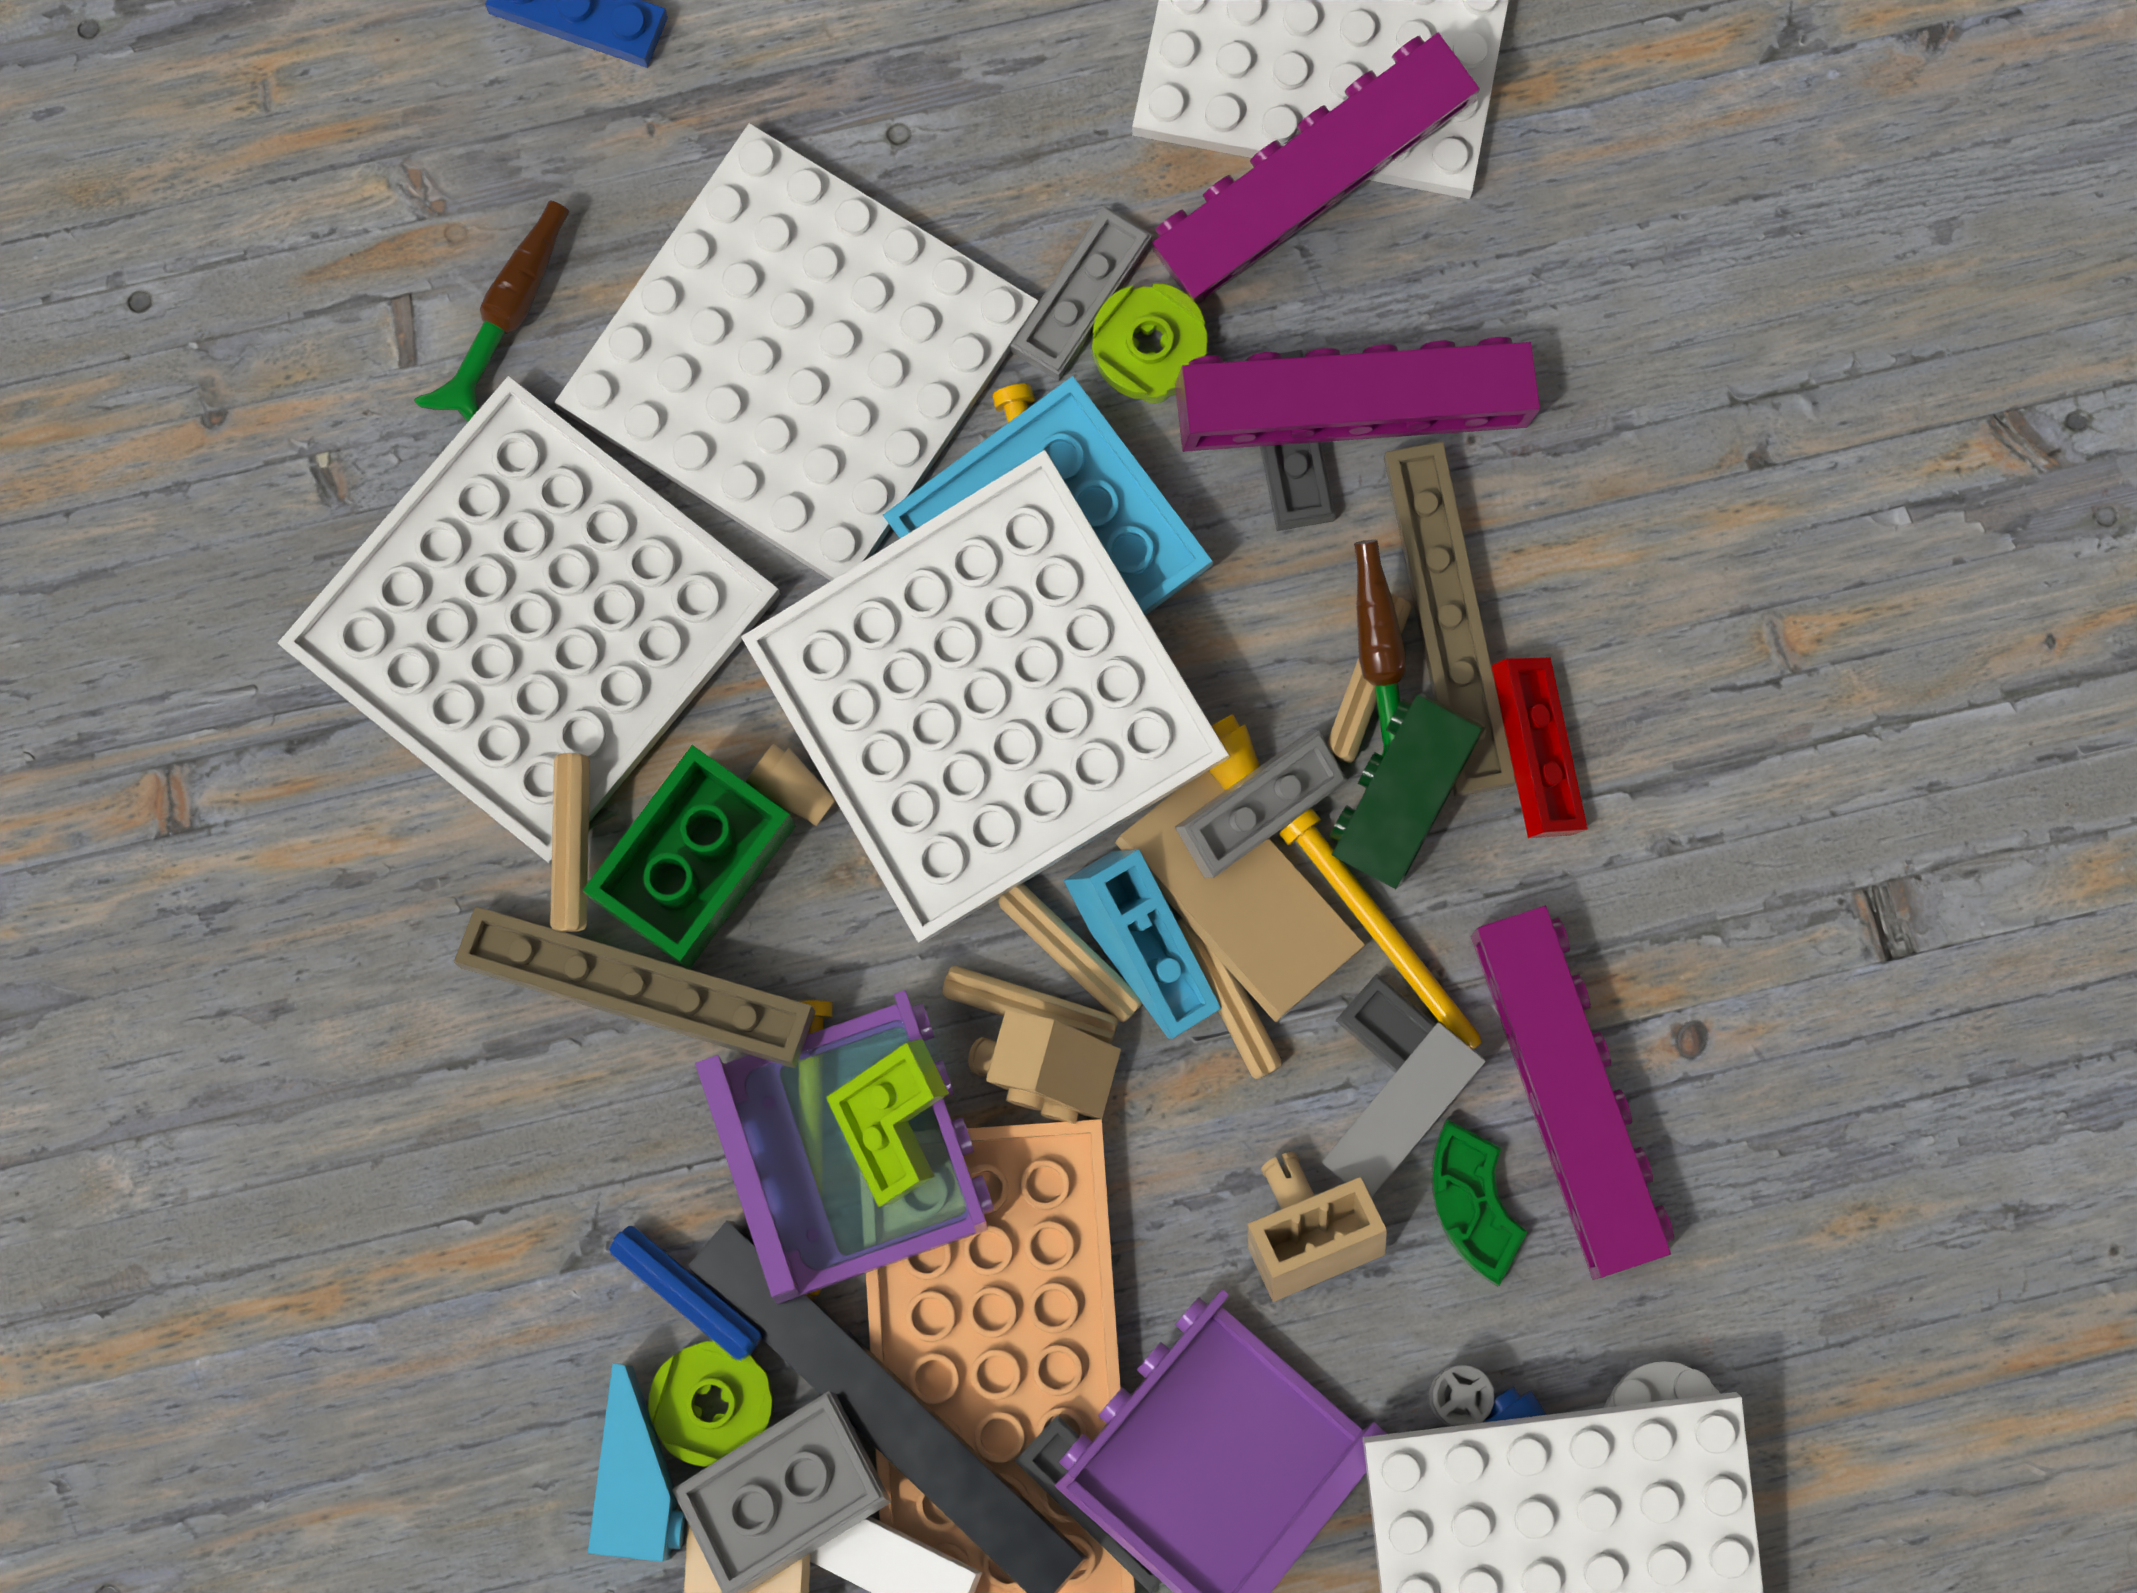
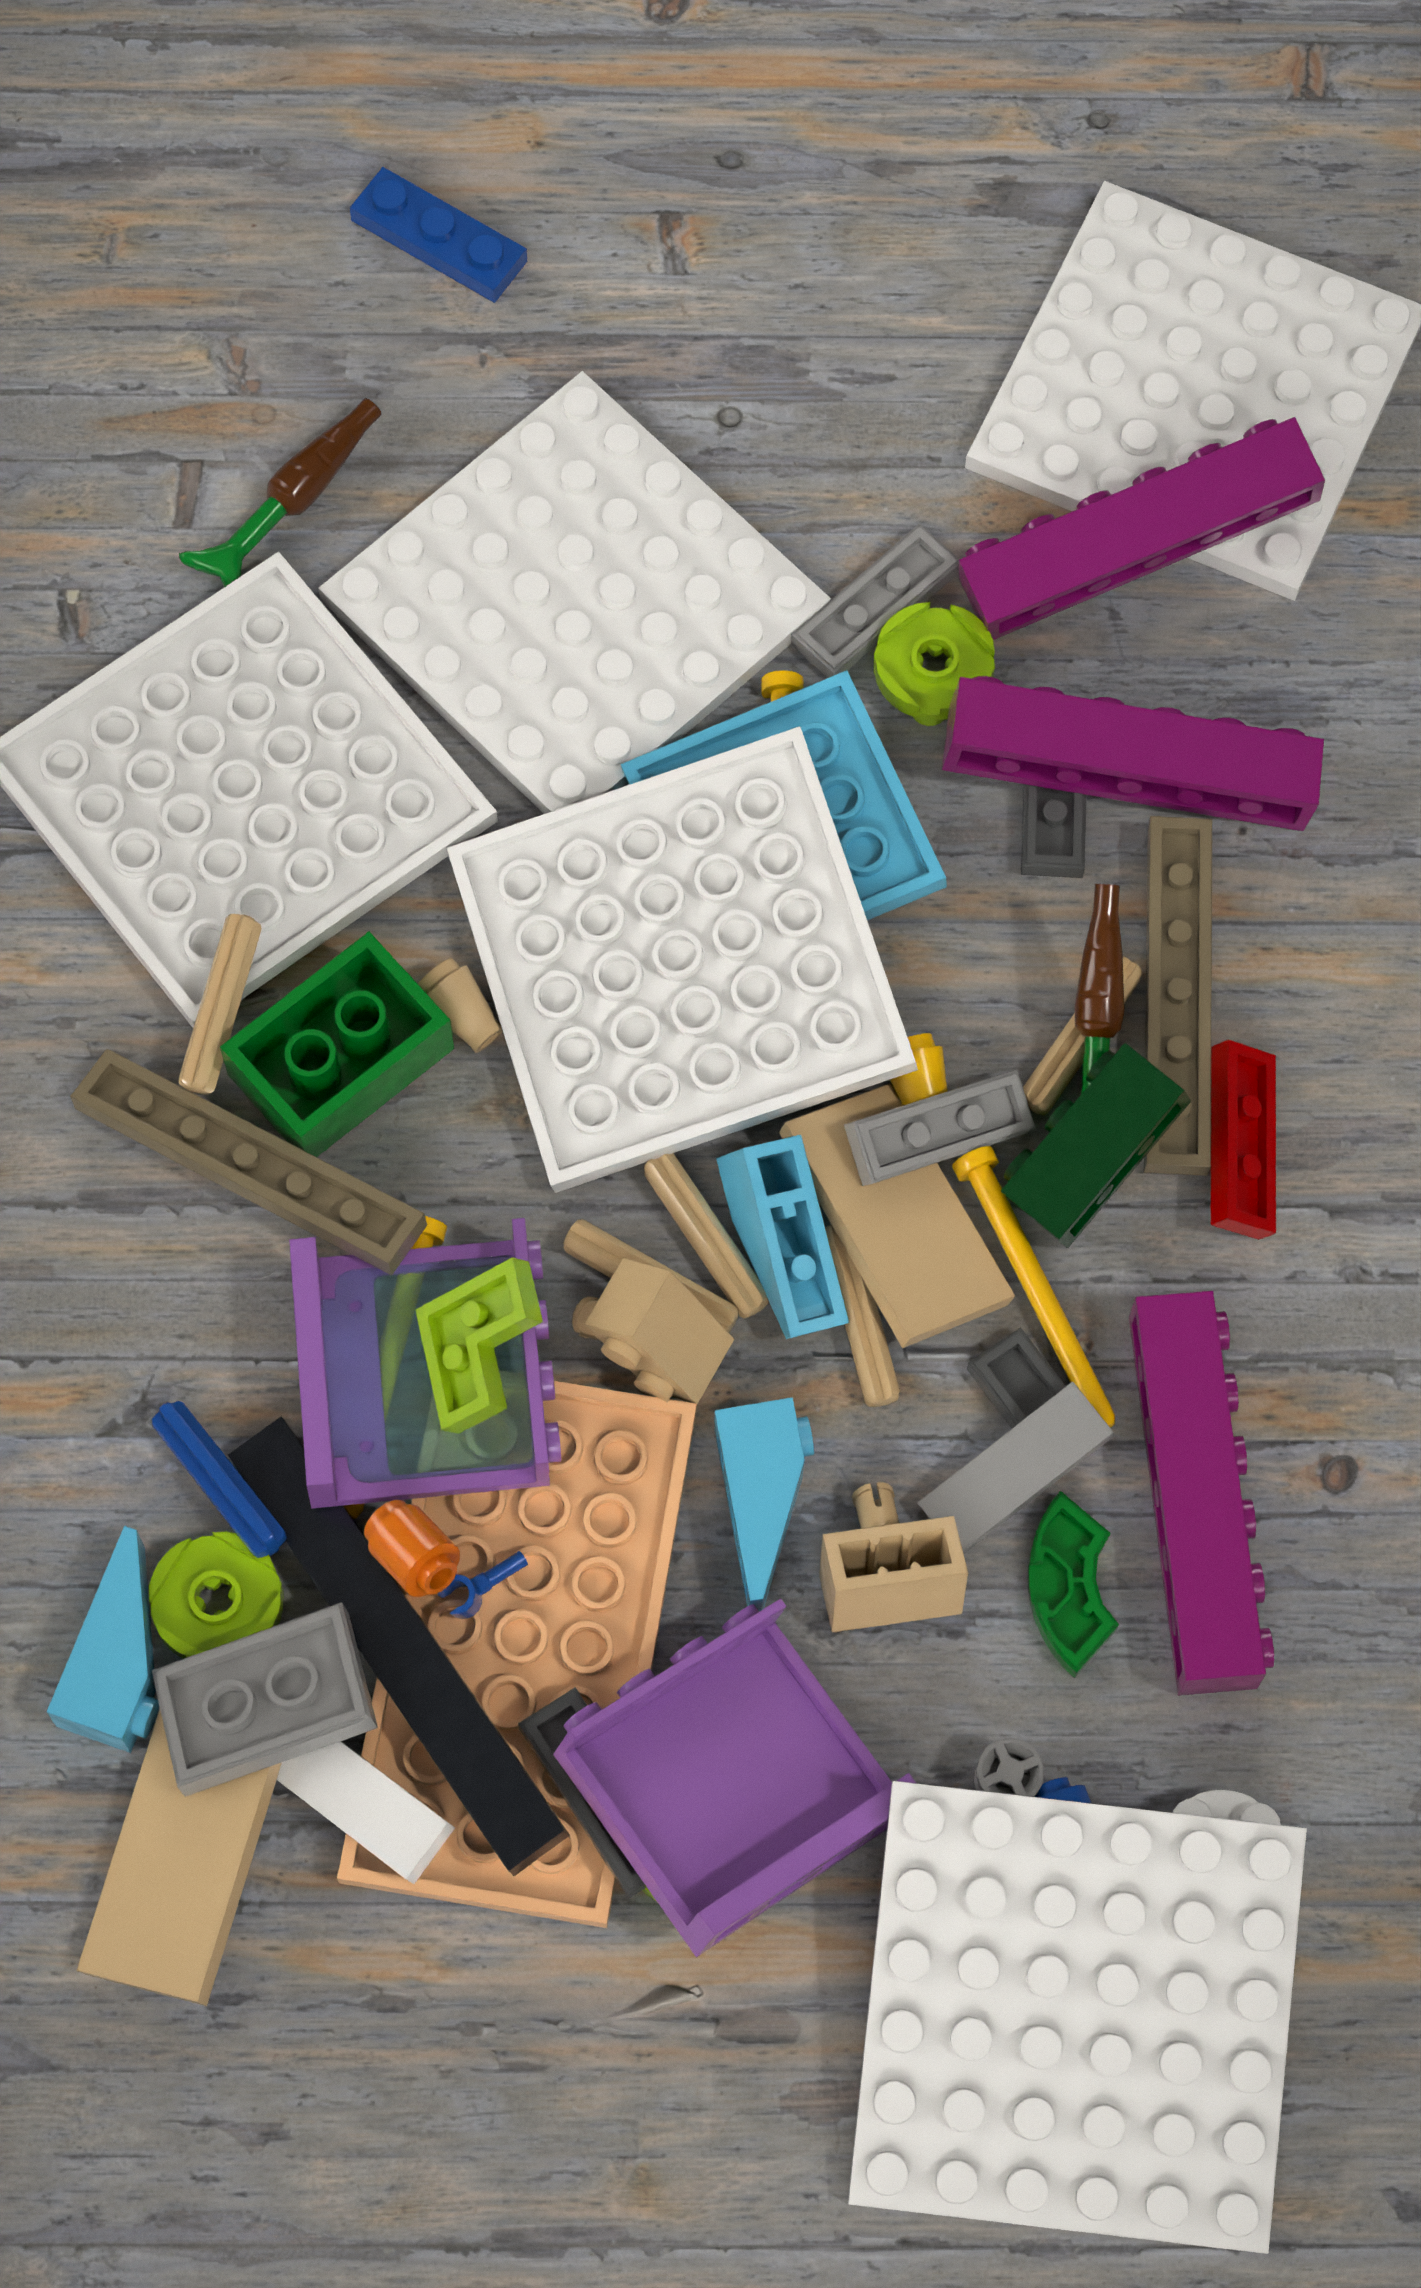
camera: 10 degrees right, 10 degrees down
(879, 1324) = (412, 1548): none -> orange brick
(950, 1335) = (482, 1584): none -> blue hand
(1177, 1172) = (762, 1473): none -> medium azure slope

